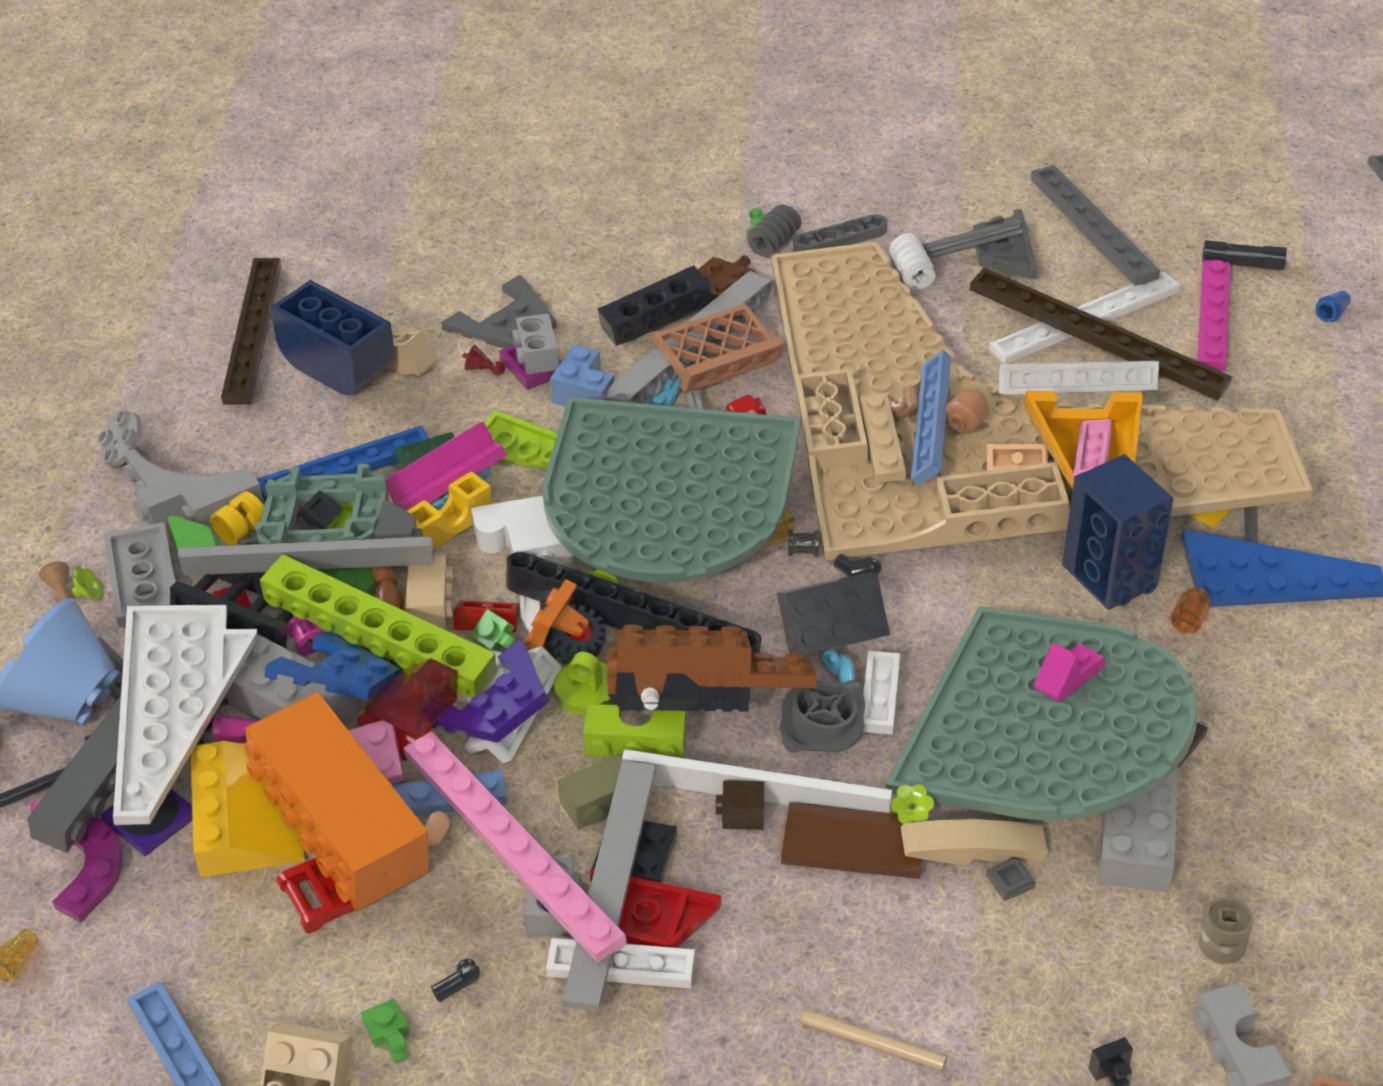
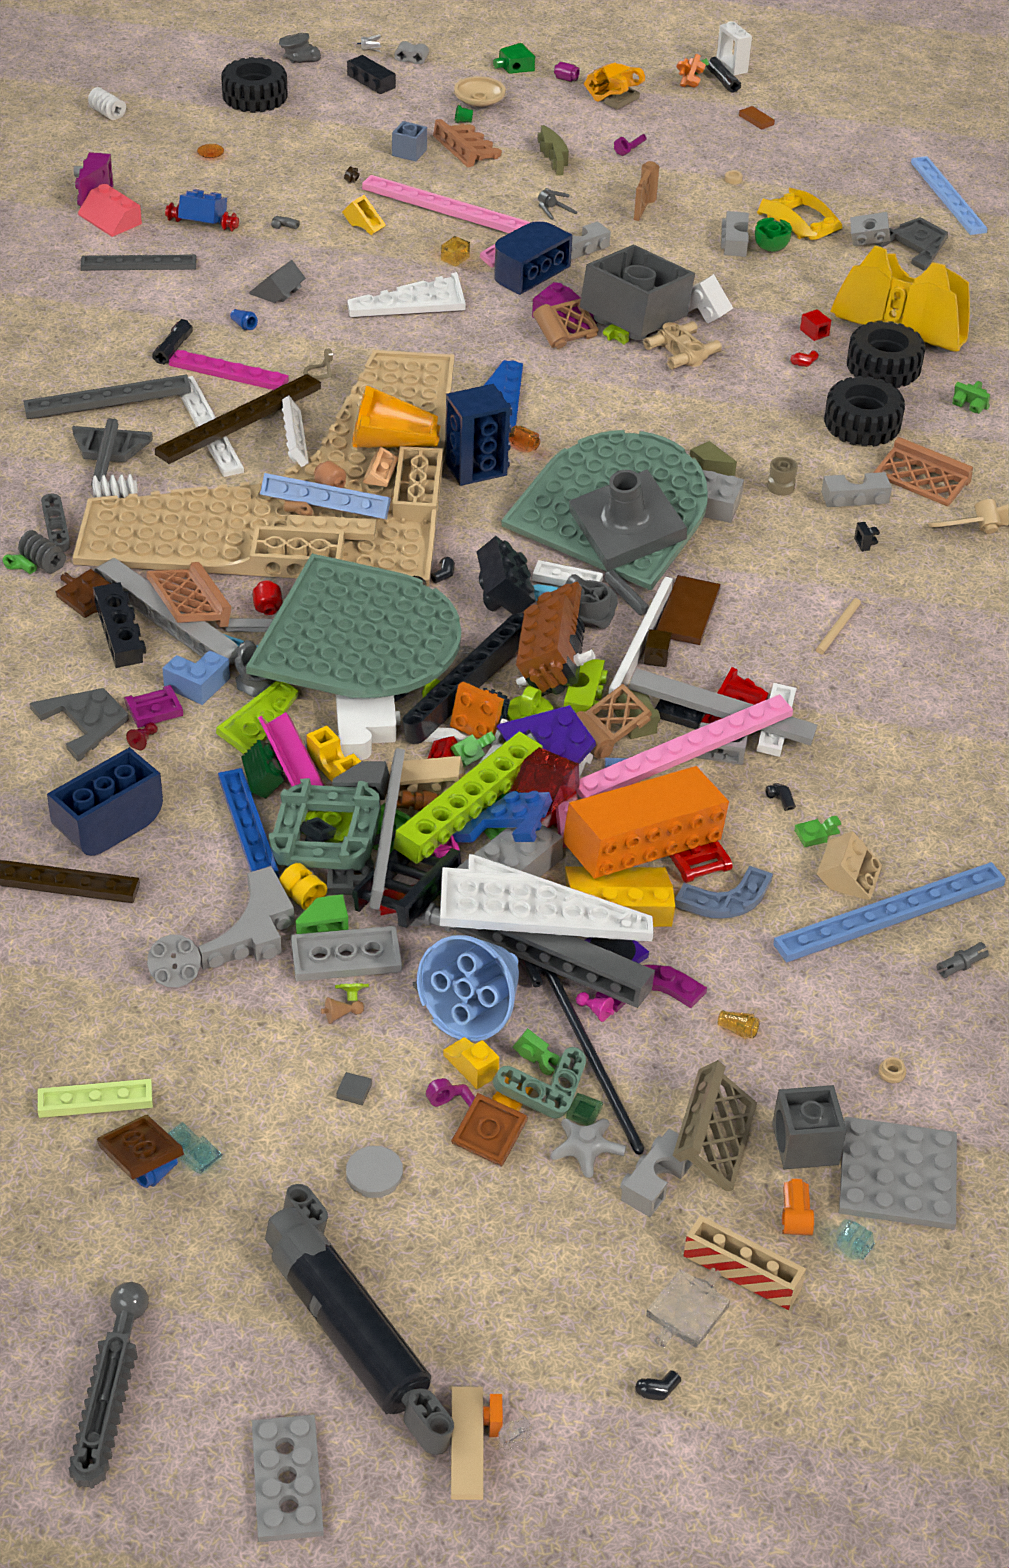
camera: 85 degrees left, 0 degrees up
(236, 936) = (726, 904): none -> sand blue plate
(536, 344) = (150, 689): light grey brick -> none
(553, 746) = (602, 735): none -> medium nougat piece
(873, 760) = (626, 592): none -> dark grey axle
(912, 796) = (674, 572): lime plant -> none
(971, 839) = (701, 558): tan slope -> none
(995, 722) = (627, 518): none -> dark grey piece
(1010, 879) = (726, 553): dark grey tile -> none
(1067, 670) = (589, 476): dark pink slope -> none
(1093, 445) = (411, 421): bright pink tile -> none
(1234, 835) = (713, 459): none -> olive slope
(1270, 386) = (326, 362): none -> dark tan piece

